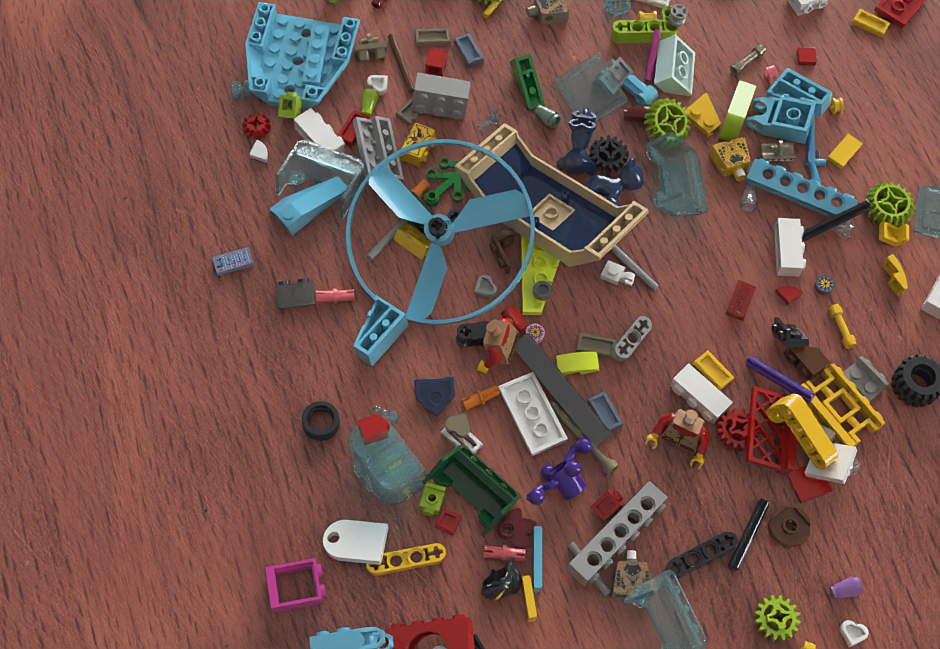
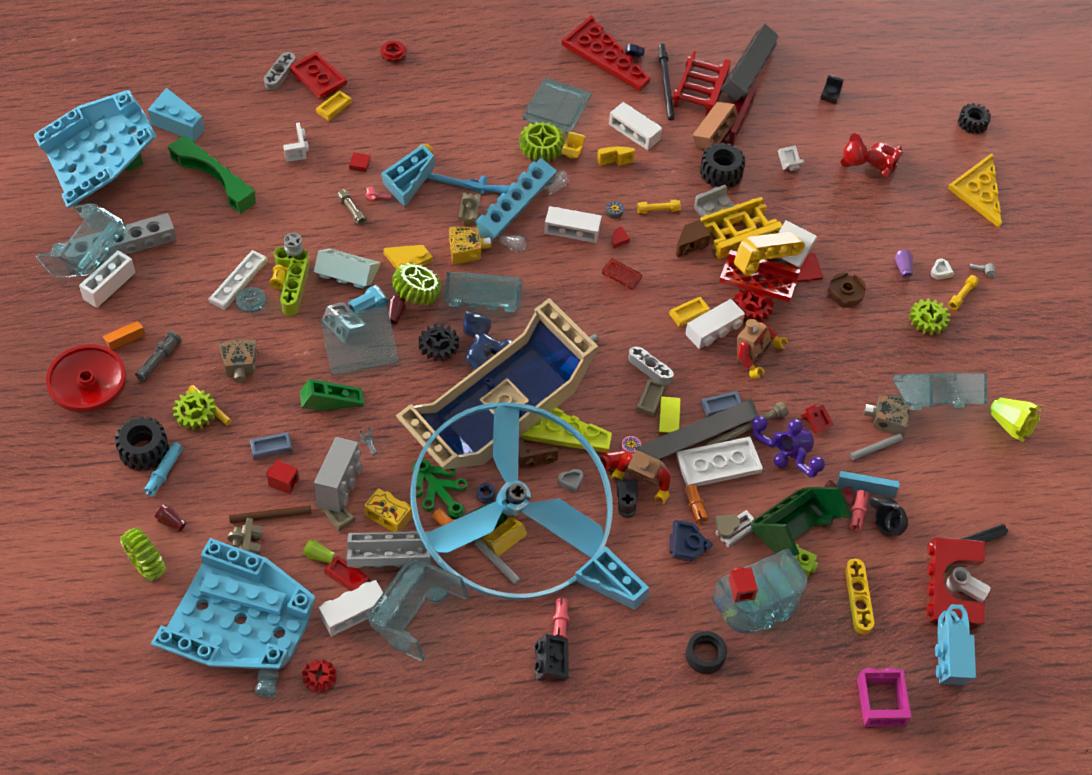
camera: 80 degrees left, 10 degrees down
(233, 261) = (498, 720): sand blue tile -> none
(259, 152) = (356, 675): white tile -> none
(285, 108) = (315, 629): lime brick -> none
(305, 205) = (443, 634): medium azure wedge -> none
(357, 541) = (842, 634): white tile -> none
(378, 83) = (293, 540): white tile -> none
(391, 415) = (708, 586): clear light blue hand -> none
(432, 37) = (243, 478): dark tan tile -> none
(448, 521) = (824, 553): red tile -> none
(528, 598) = (912, 498): yellow tile -> none
(542, 290) = (590, 426): dark grey tile -> none
(548, 116) = (379, 386): sand green cone -> none
(577, 159) = (442, 367): dark blue animal -> none
(579, 566) = (849, 415): light grey brick -> none
(652, 57) = (326, 278): dark pink bar -> none
(699, 552) = (872, 358): black beam -> none
(737, 111) = (417, 224): beam -> none
(749, 534) = (851, 320): black axle -> none
(779, 379) = (710, 260): dark purple axle -> none
(783, 118) = (433, 192): medium azure brick -> none
(789, 334) = (668, 242): black bracket -> none
(836, 220) = (555, 177): black axle -> none
(844, 151) = (475, 160): yellow tile -> none

